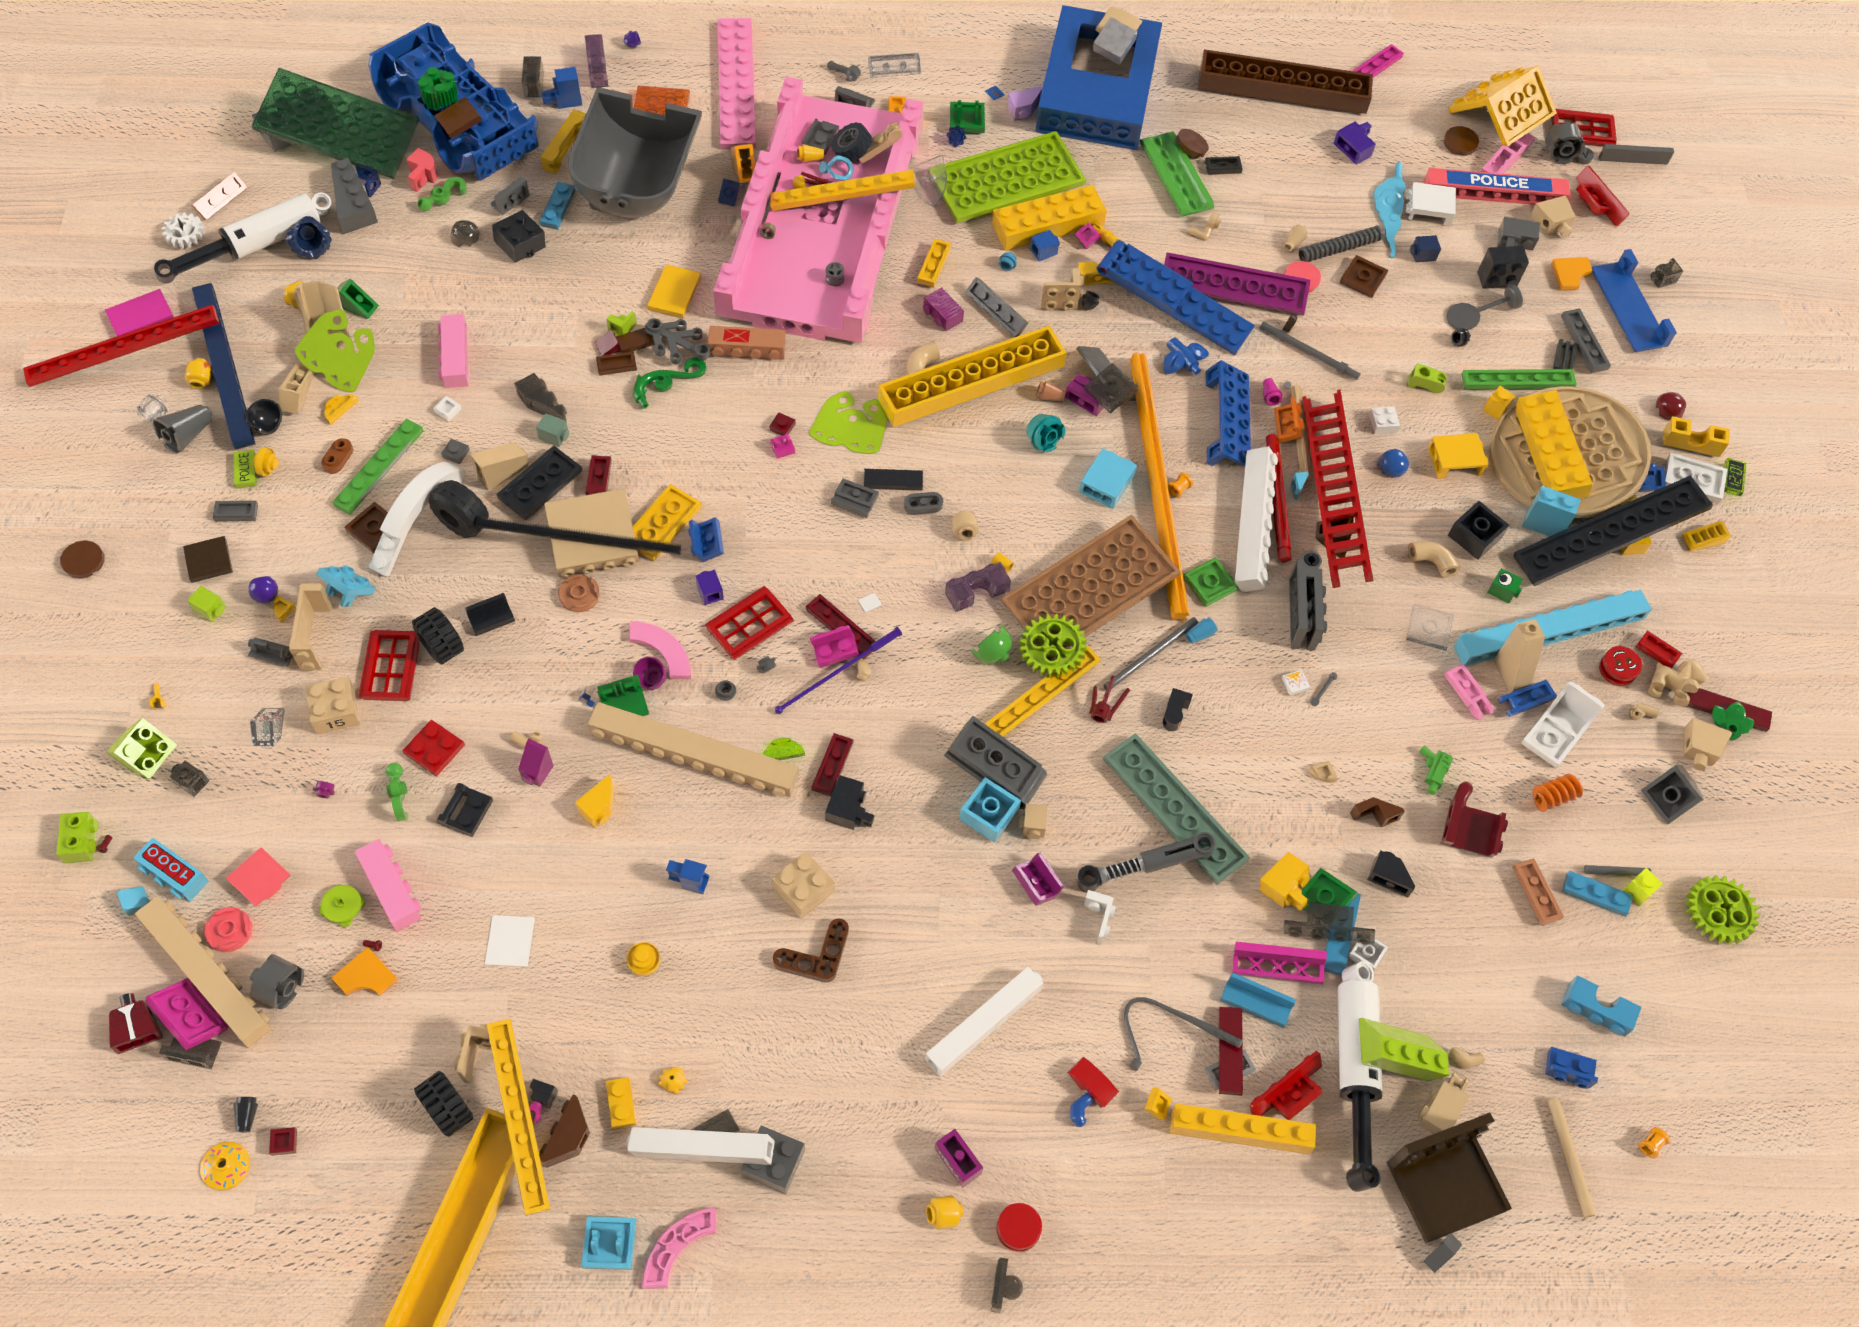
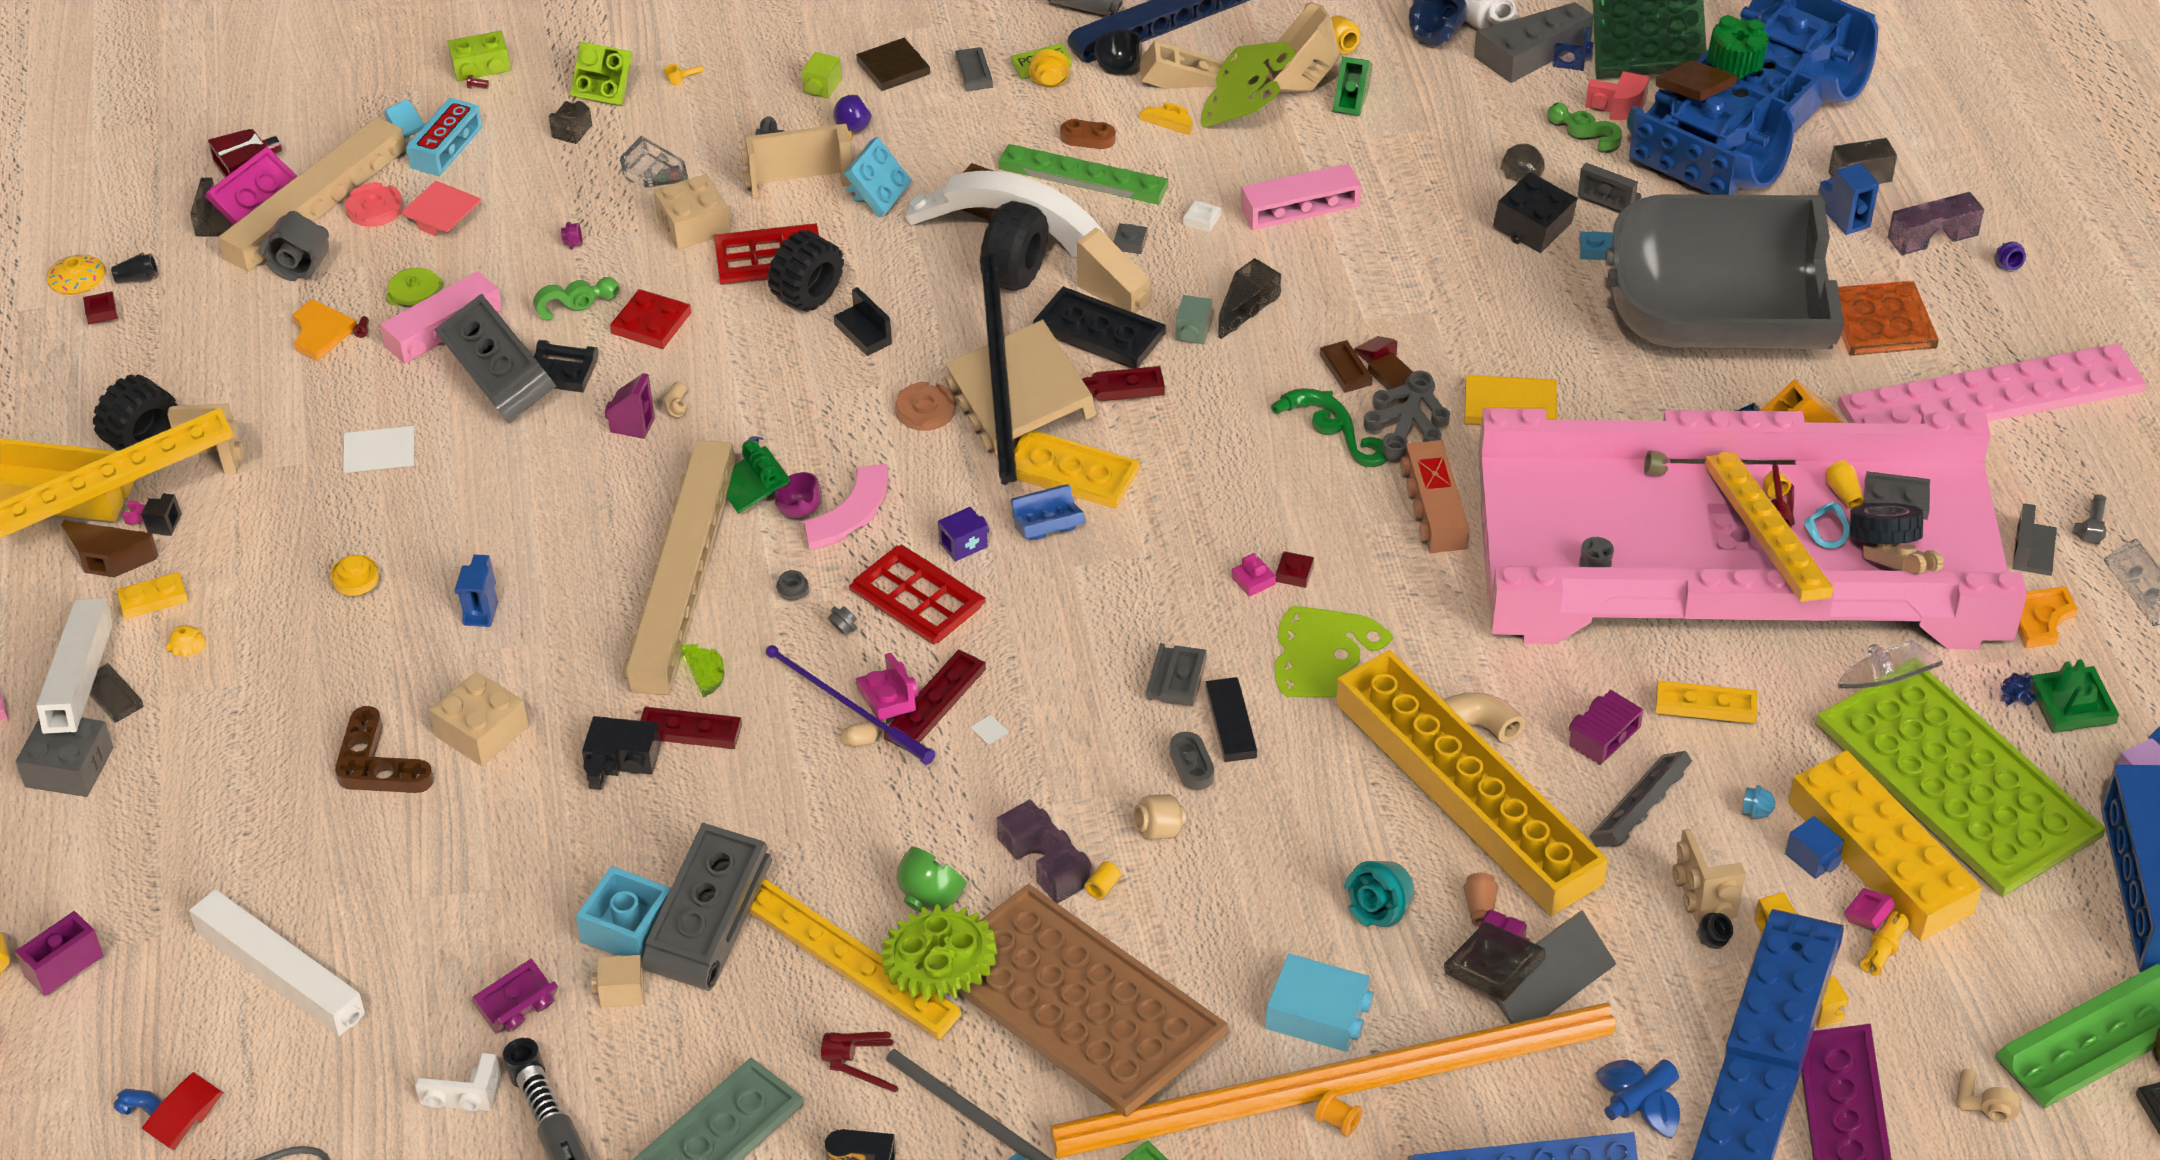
camera: 85 degrees right, 15 degrees down
(479, 838) = (495, 358): none -> dark grey hinge
(597, 802) = (586, 485): yellow slope -> none
(621, 324) = (1418, 357): lime panel -> none

